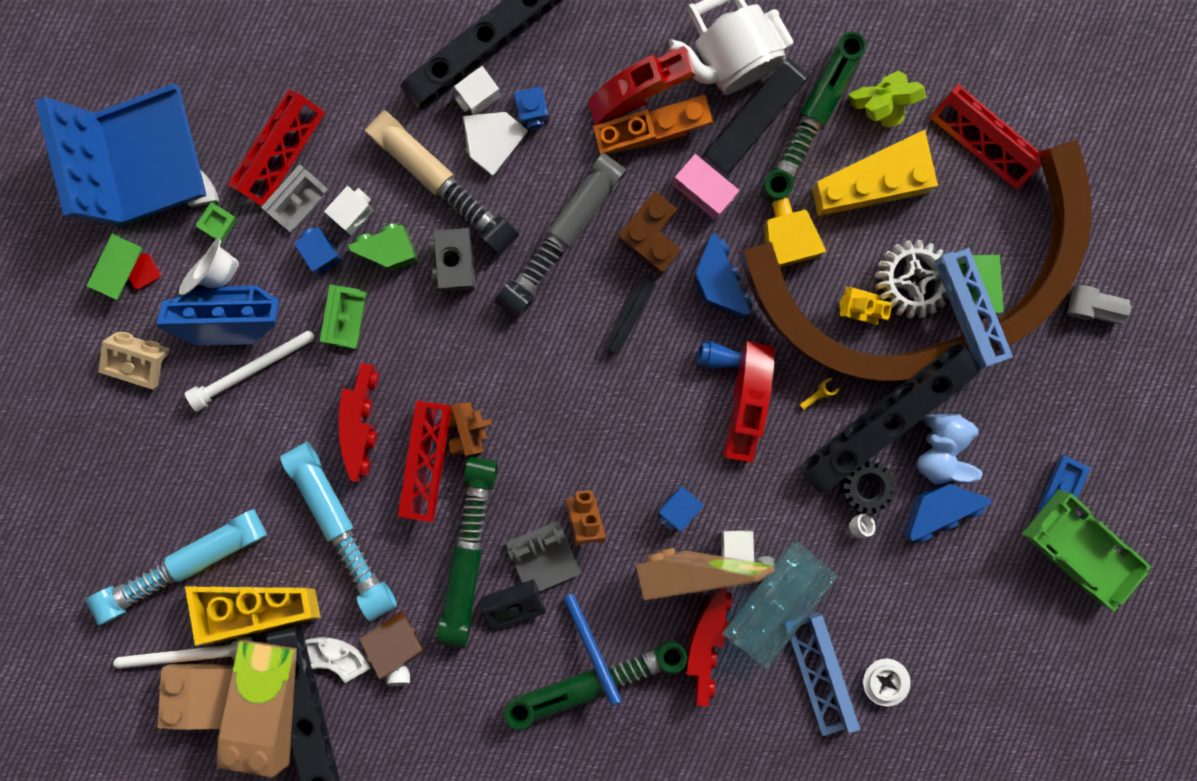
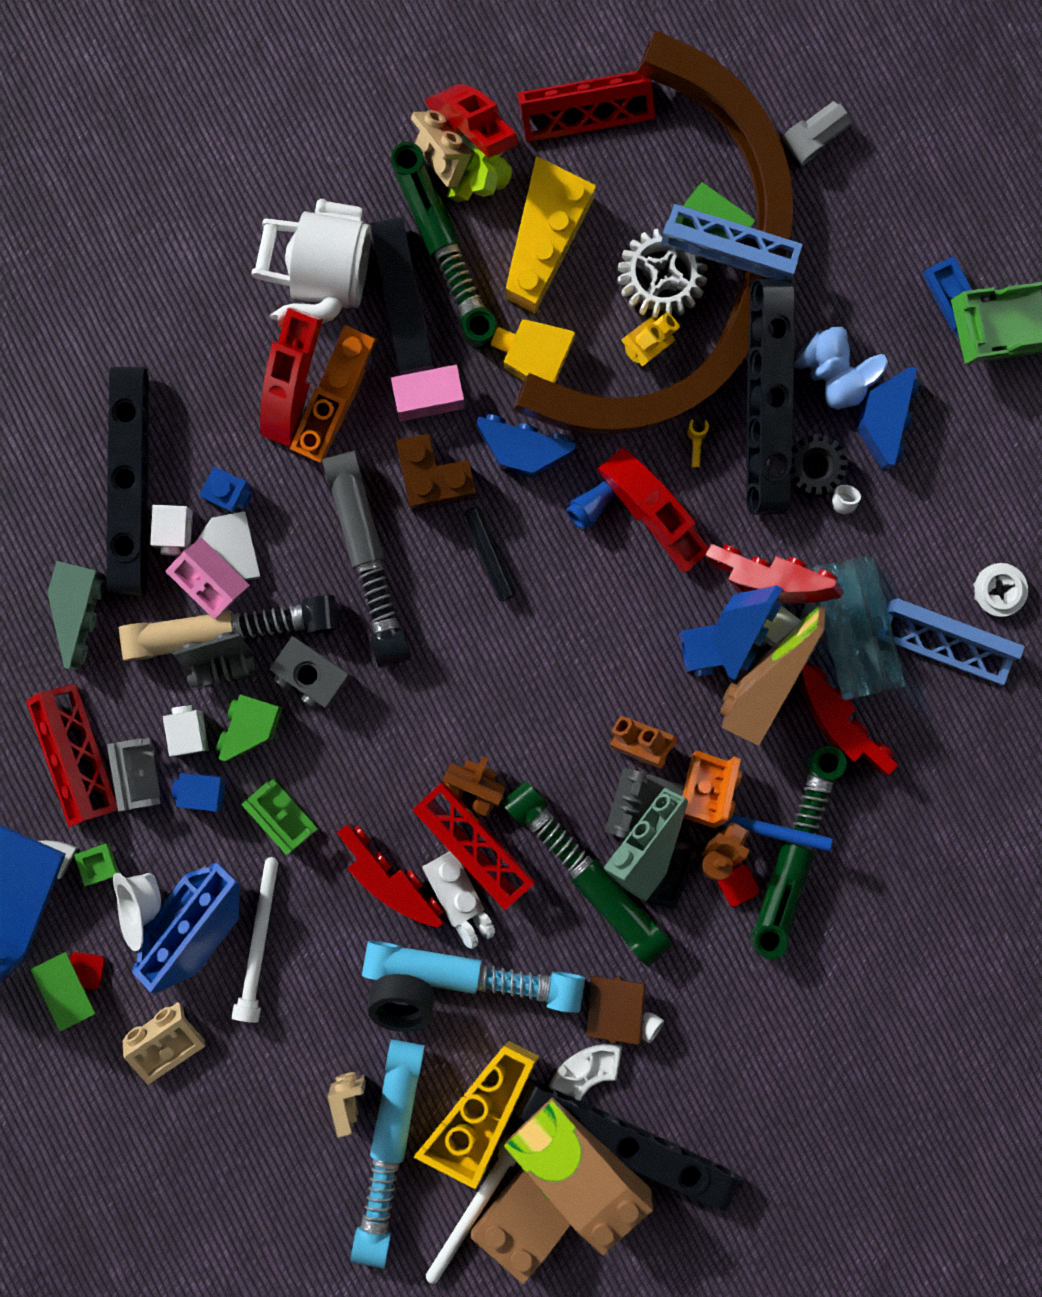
camera: 60 degrees left, 0 degrees up
(185, 511) = (343, 1101): none -> tan bracket
(281, 496) = (403, 989): none -> black tyre
(374, 68) = (72, 603): none -> sand green slope
(382, 479) = (458, 898): none -> white hinge
(408, 183) = (201, 657): none -> dark grey hinge
(462, 140) = (207, 578): none -> bright pink hinge
(519, 579) = (647, 850): none -> sand green slope
(541, 661) = (739, 886): none -> red piece
(554, 634) = (724, 852): none -> dark orange hips
(589, 590) = (711, 789): none -> orange bracket
(716, 525) = (743, 627): none -> blue slope
(766, 523) = (792, 575): none -> slope
(878, 61) = (441, 147): none -> tan bracket
(917, 66) = (475, 116): none -> red slope

